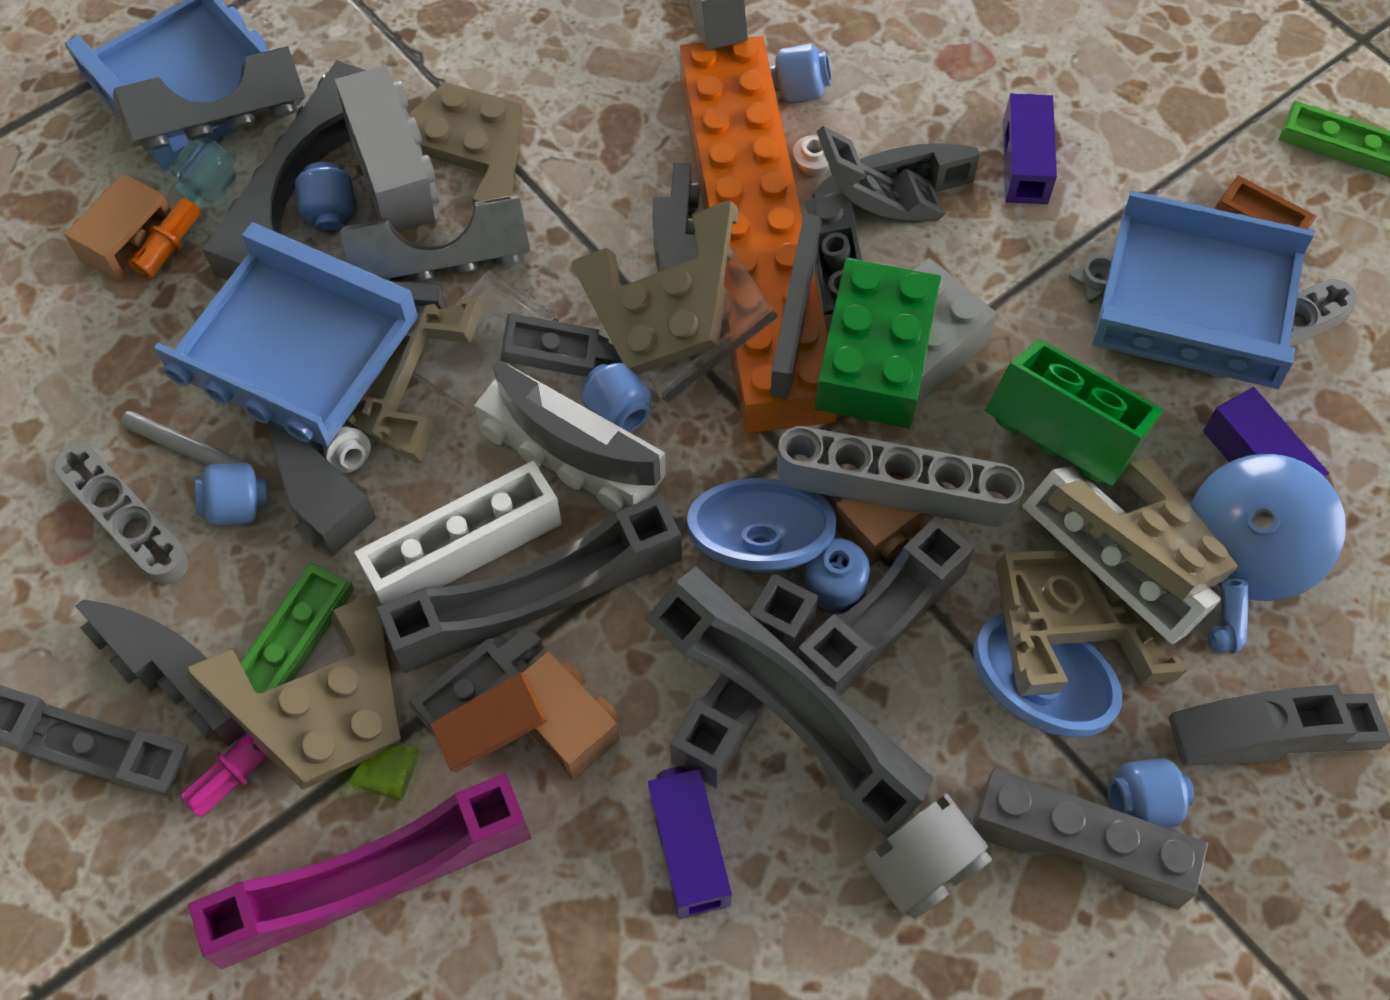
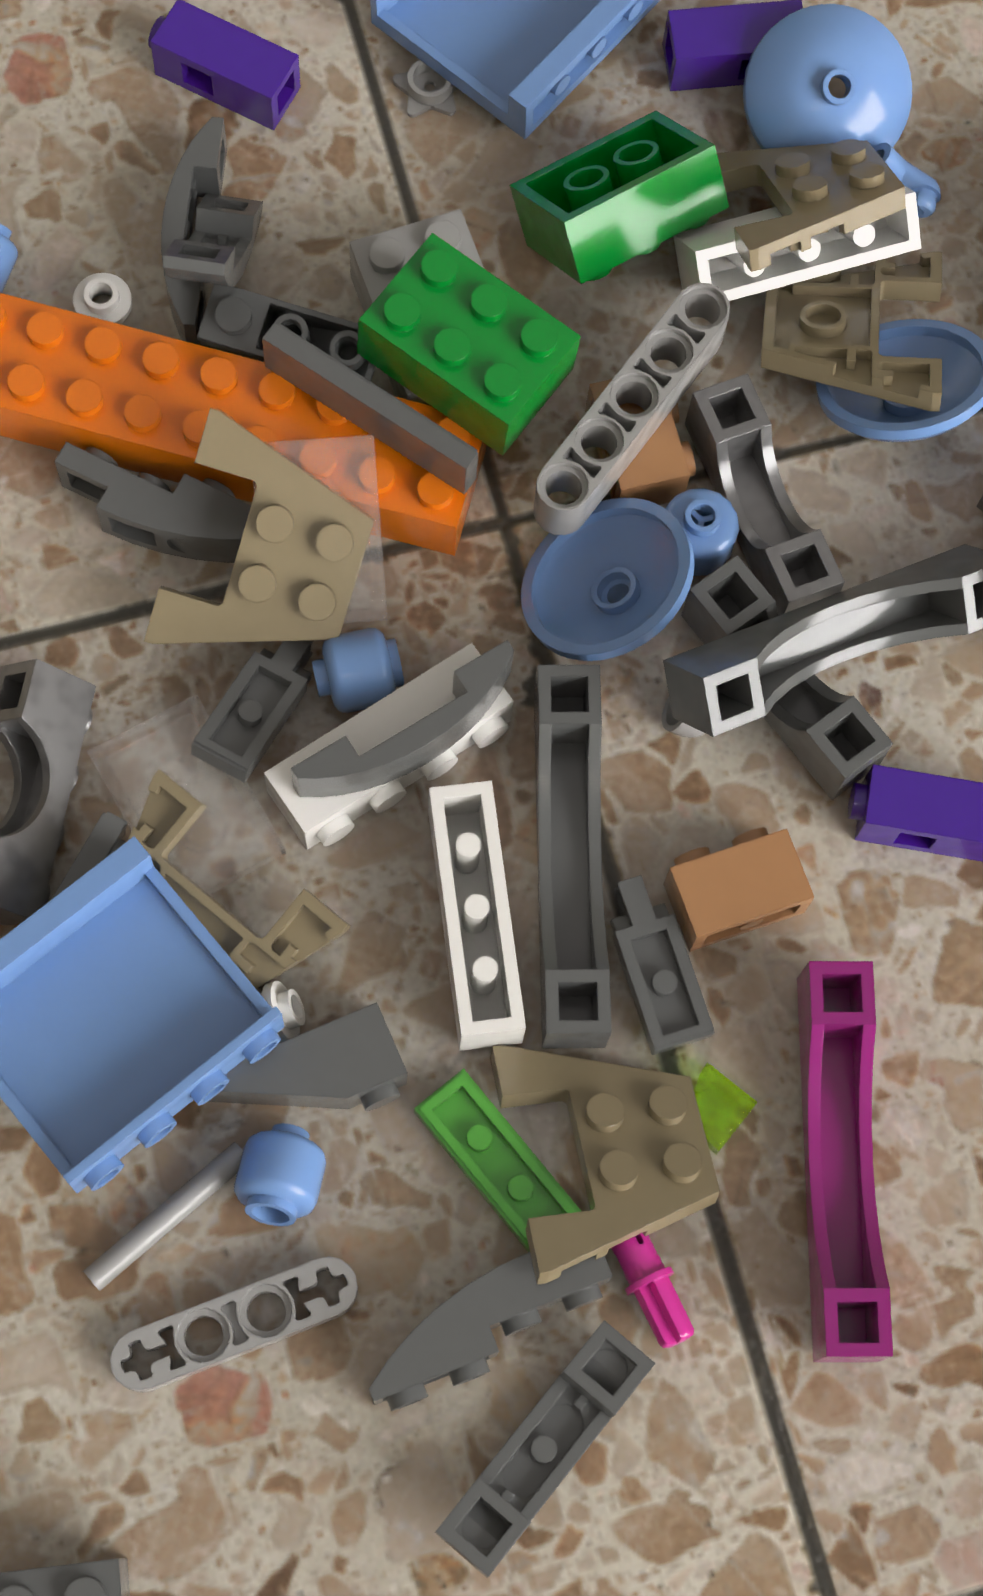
camera: 75 degrees left, 10 degrees up
(488, 722) = (732, 963): dark orange tile -> none

